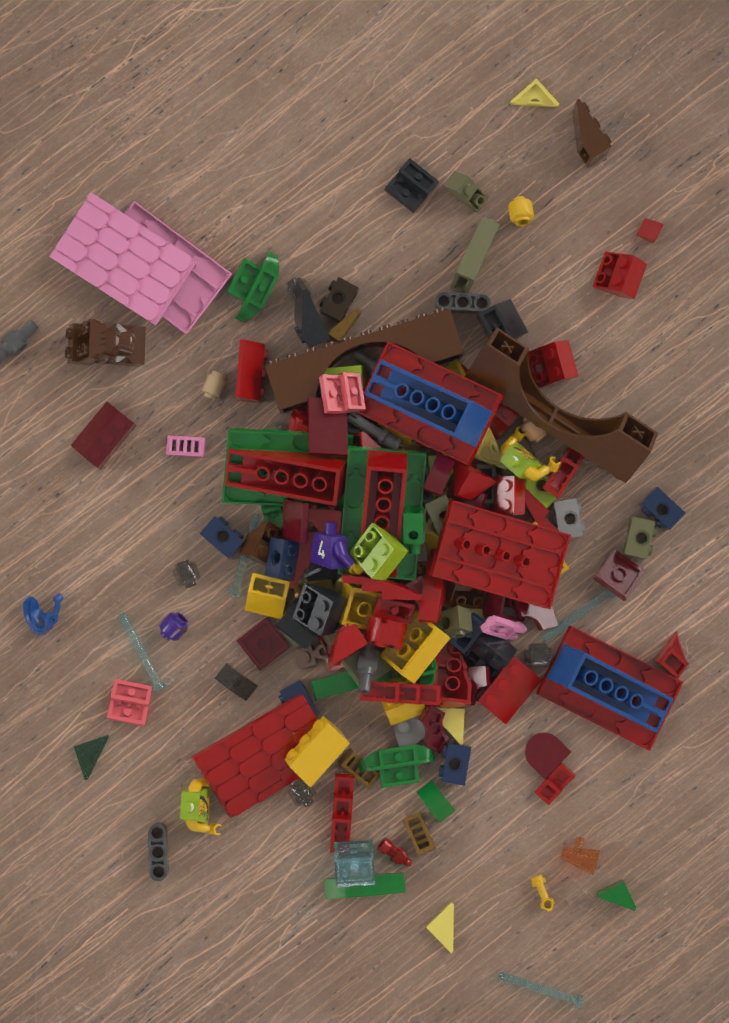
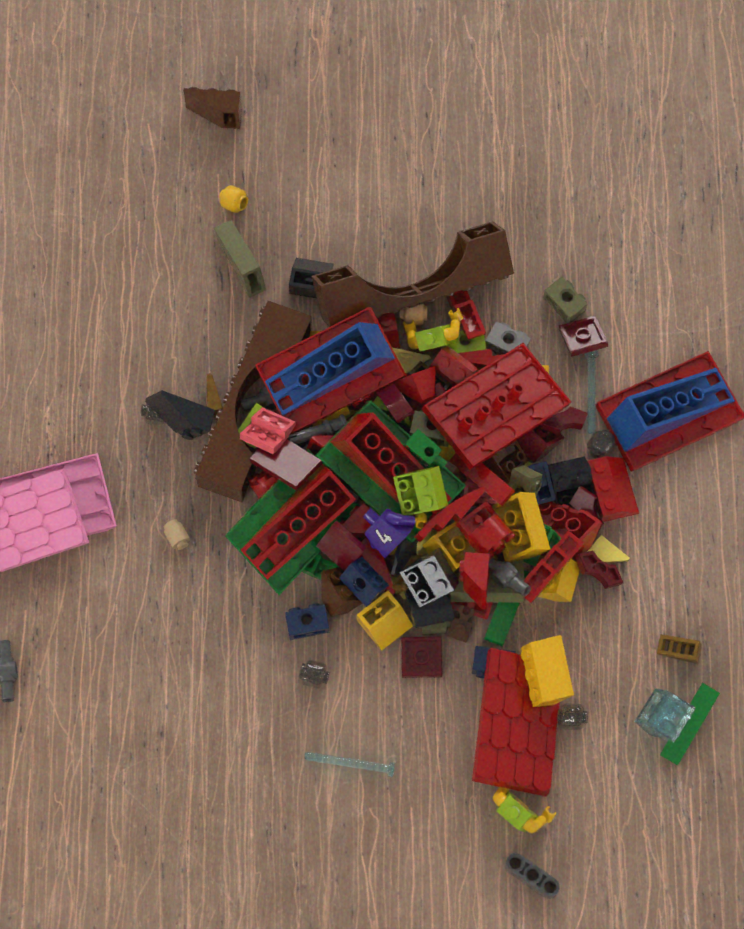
camera: 50 degrees left, 15 degrees down
(33, 612) = (245, 829): blue helmet -> none
(89, 753) = (402, 873): clear green tile -> none
(103, 435) = (143, 655): dark red slope -> none
(105, 344) = (69, 593): reddish brown brick -> none
(129, 702) = (385, 805): coral slope -> none
(173, 626) = (349, 718): dark purple head -> none
(201, 447) = (212, 600): bright pink slope -> none
(236, 681) = (435, 701): clear smoke slope -> none
(243, 561) = (359, 646): clear light blue bar -> none
(251, 371) = (189, 496): red slope -> none
(253, 285) = (121, 443): green plate -> none
(342, 809) = (611, 694): red slope -> none
(344, 289) = (187, 375): dark brown brick -> none
(346, 758) = (579, 664): pearl gold slope -> none
(397, 764) = (606, 621): green plate -> none
(397, 855) = (684, 679): red piece -> none
(409, 731) = (588, 594): light grey wing -> none
(411, 185) = (143, 265): black slope -> none
(435, 801) = (661, 614): green slope -> none
(458, 774) = (639, 563): dark blue brick -> none
(466, 191) = (182, 227): olive slope -> none
(472, 299) = (270, 286): dark grey beam -> none
(503, 628) = (557, 451): bright pink hinge -> none
(535, 95) = (152, 124): light yellow tile -> none
(545, 753) = (686, 499): dark red tile -> none
(552, 363) = (374, 261): red slope -> none
(555, 783) = (717, 510): red slope -> none
(620, 274) = (344, 164): red slope -> none
(650, 230) = (327, 118): red slope -> none
(672, 514) = (563, 259): dark blue brick -> none
(672, 657) = (681, 346): red slope -> none

